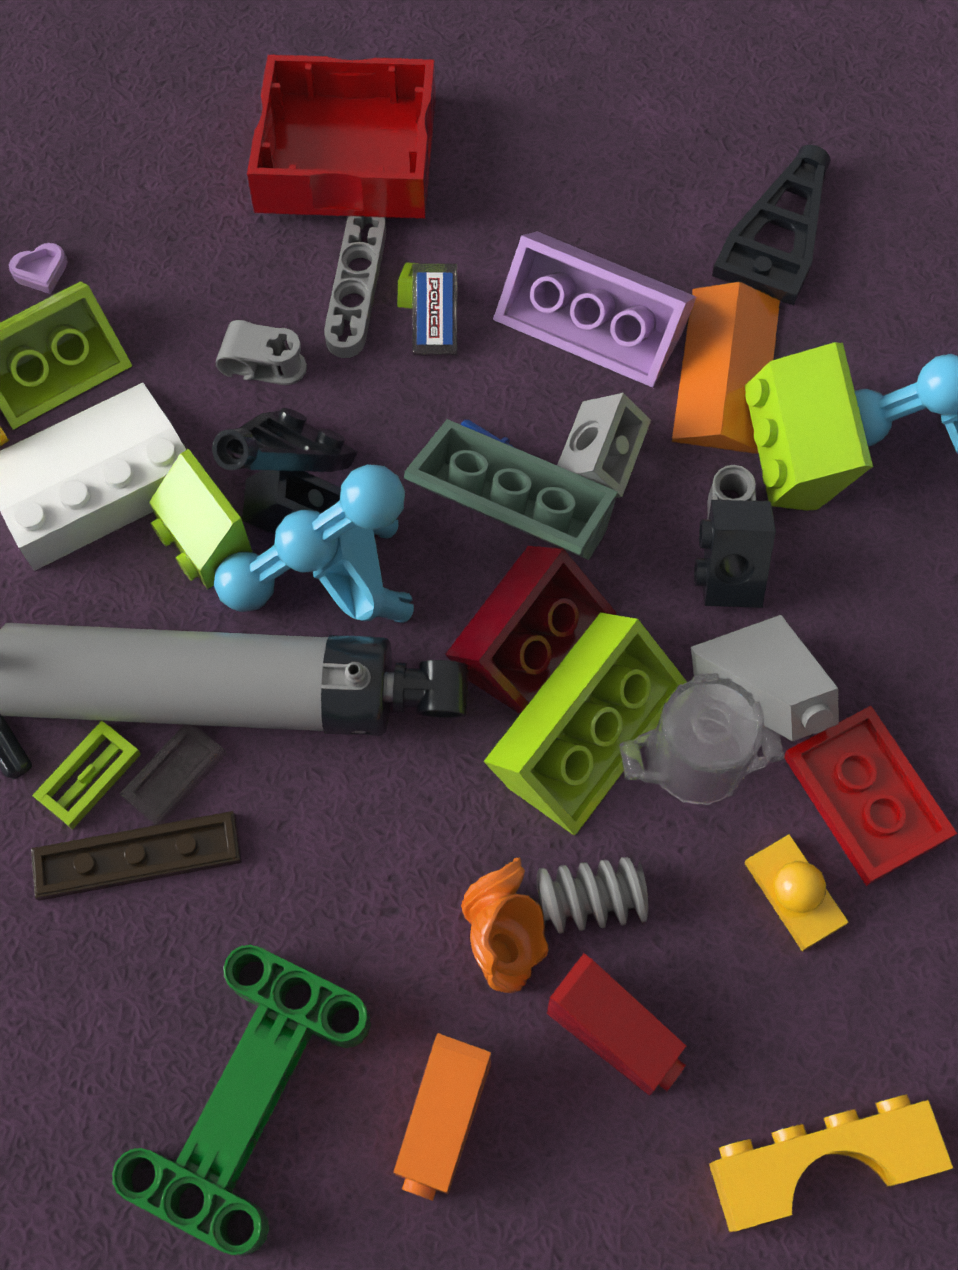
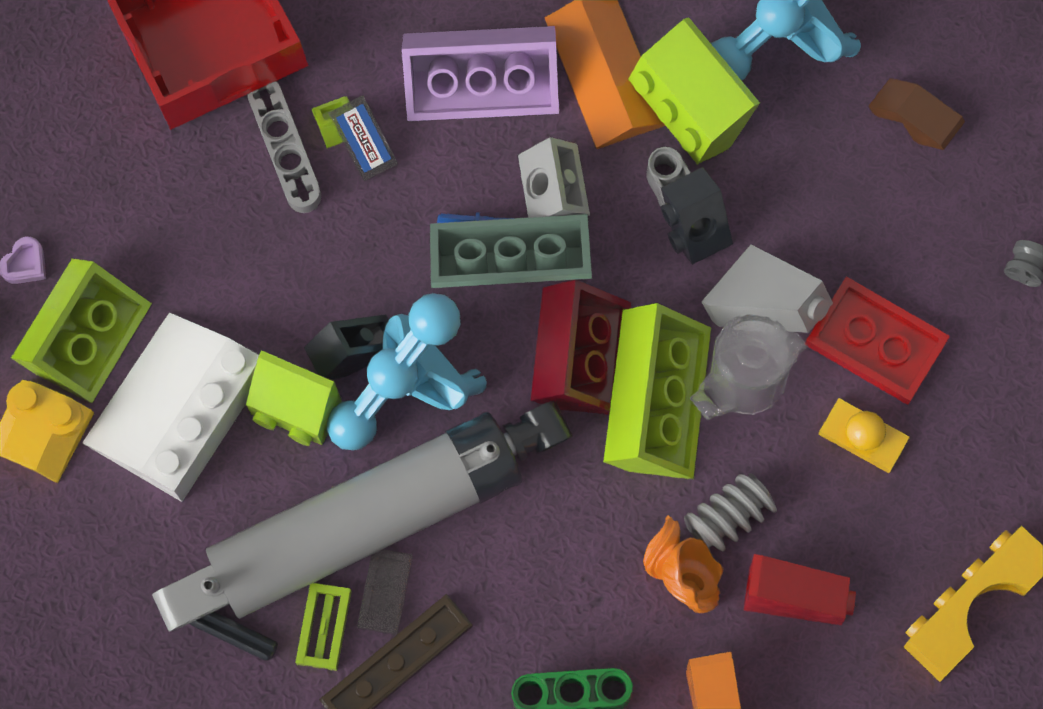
camera: 25 degrees left, 5 degrees up
(259, 352) = (245, 242): light grey piece -> none
(282, 443) = (324, 308): black plate -> none

